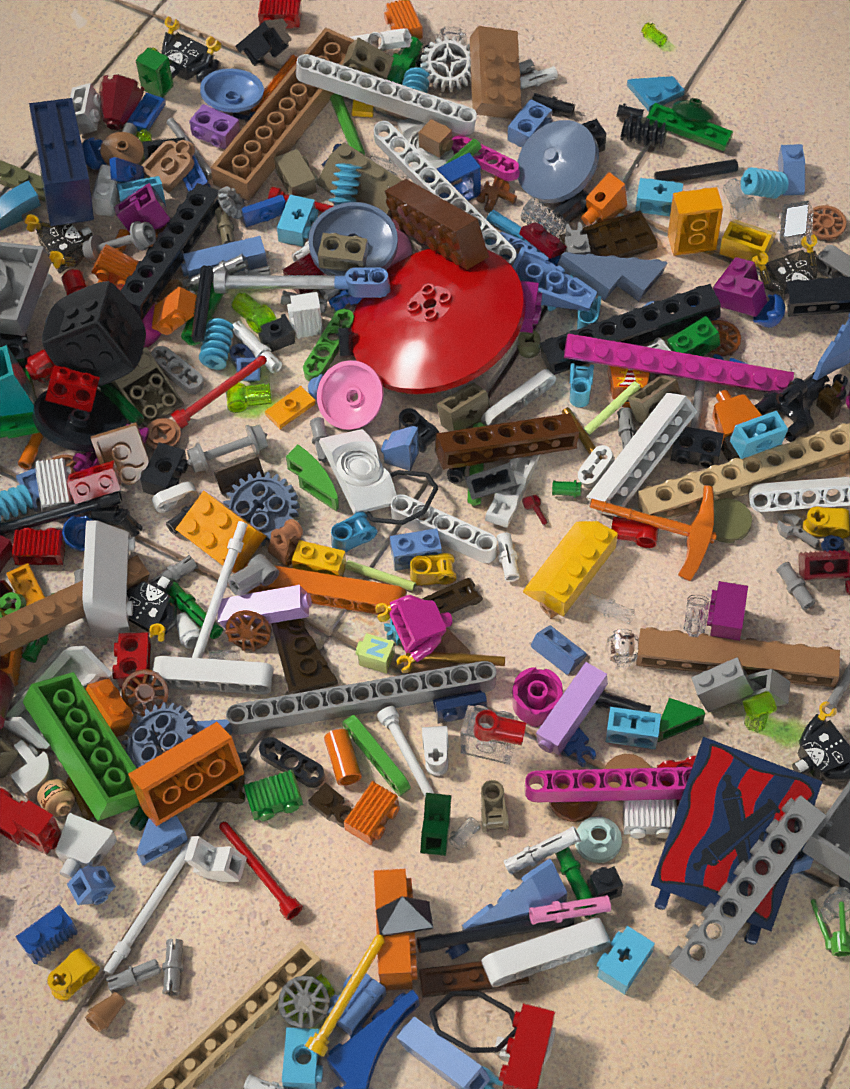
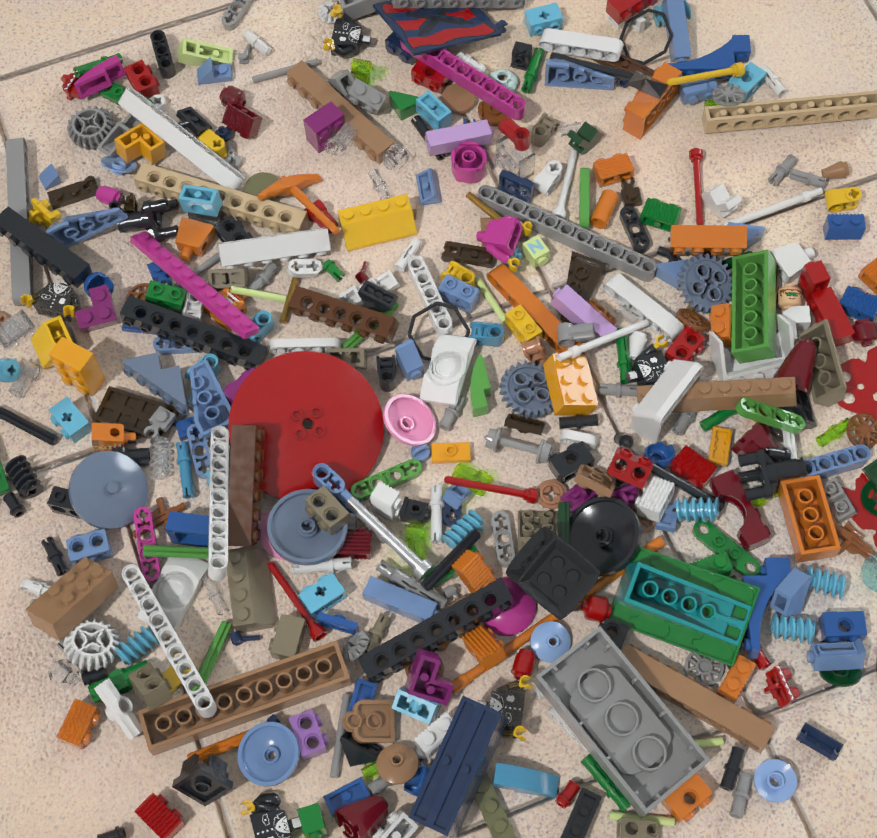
camera: 140 degrees left, 5 degrees up
(72, 388) = (594, 552): red brick -> none
(91, 885) = (802, 232): medium blue brick -> none
(125, 171) = (412, 731): blue plate -> none
(140, 234) = (486, 681): light grey piece -> none
(345, 183) = (268, 585): medium azure piece -> none
(345, 341) = (374, 468): black pin -> none
(435, 138) = (167, 576): medium nougat brick -> none
(533, 854) = (546, 91): white pin -> none
(539, 914) = (559, 52): bright pink pin -> none
(543, 240) = (181, 437): dark red plate -> none
(795, 585) = (267, 126): light grey pin -> none

